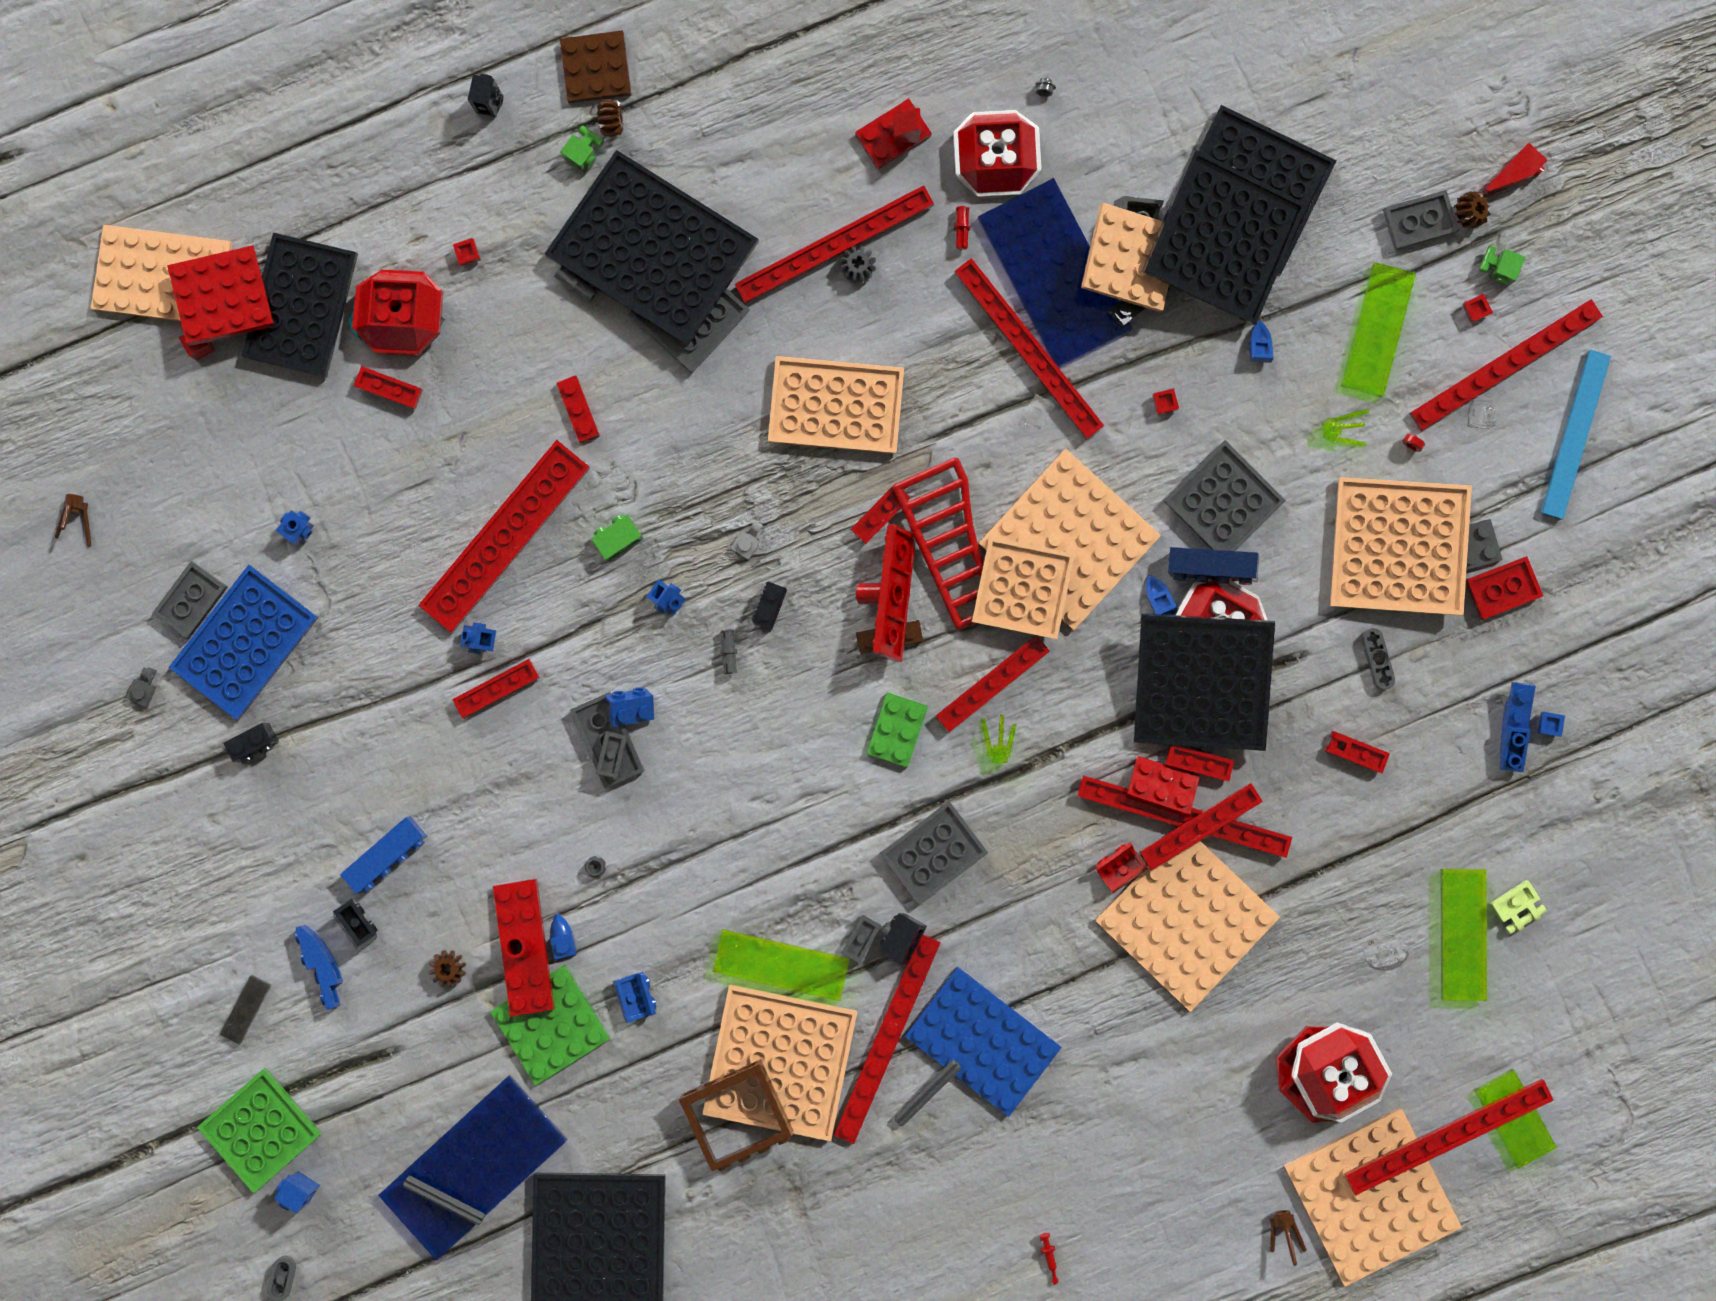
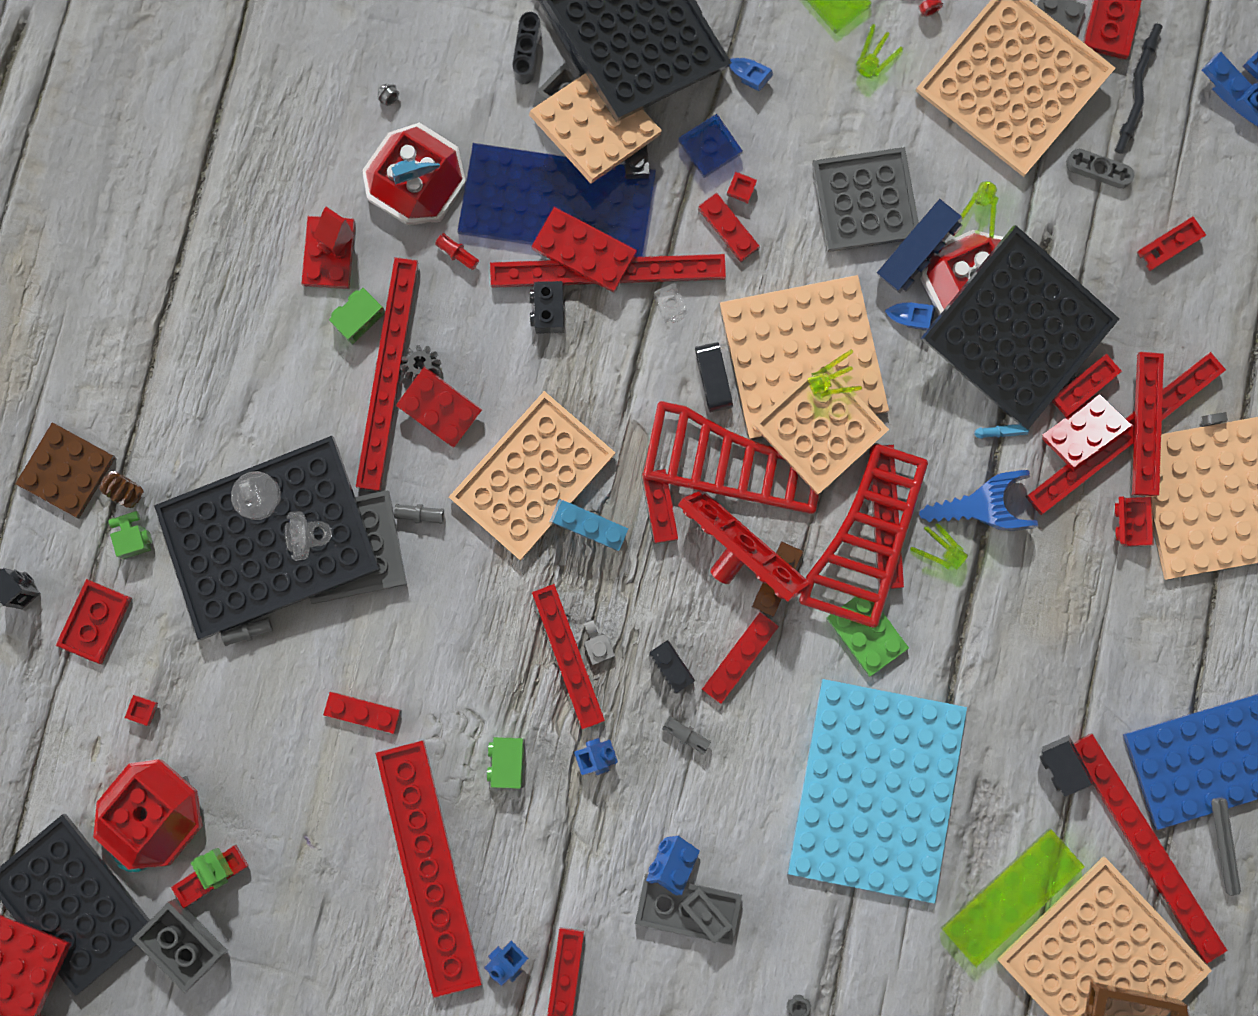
camera: 55 degrees left, 5 degrees down
(327, 402) = (179, 944): none -> dark grey slope
(394, 385) = (212, 869): none -> bright green brick
(504, 170) = (93, 621): none -> red tile
(668, 271) = (300, 535): none -> clear tile
(675, 217) = (255, 495): none -> clear tile
(723, 526) = (568, 656): none -> red plate
(748, 343) = (419, 513): none -> dark grey pin
(788, 816) = (877, 791): none -> medium azure plate
(812, 650) = (740, 658): none -> red plate
(828, 471) = (588, 525): none -> dark azure brick
(836, 300) = (438, 407): none -> red plate
(860, 190) = (357, 315): none -> bright green brick
(861, 938) = (1038, 804): dark grey plate -> none
(934, 852) = (1004, 680): dark grey plate -> none
(954, 661) = (843, 536): none -> red bar
(968, 325) = (548, 307): none -> black brick
(991, 145) = (407, 170): none -> dark azure plate
(1005, 484) = (714, 377): none -> black beam
(1031, 319) = (584, 249): none -> red plate
(1052, 748) = (984, 505): none -> blue animal
(1054, 563) = (821, 382): none -> clear neon green plant
(1119, 724) = (1008, 430): none -> dark azure piece
(1128, 413) = (728, 227): none -> red plate
(1163, 156) = (529, 57): none -> black beam
(1180, 355) = (710, 146): none -> clear blue plate
(1242, 874) = (1214, 418): none -> dark grey tile
(1290, 586) = (984, 196): none -> clear neon green plant
(1424, 658) = (1128, 128): none -> black bar

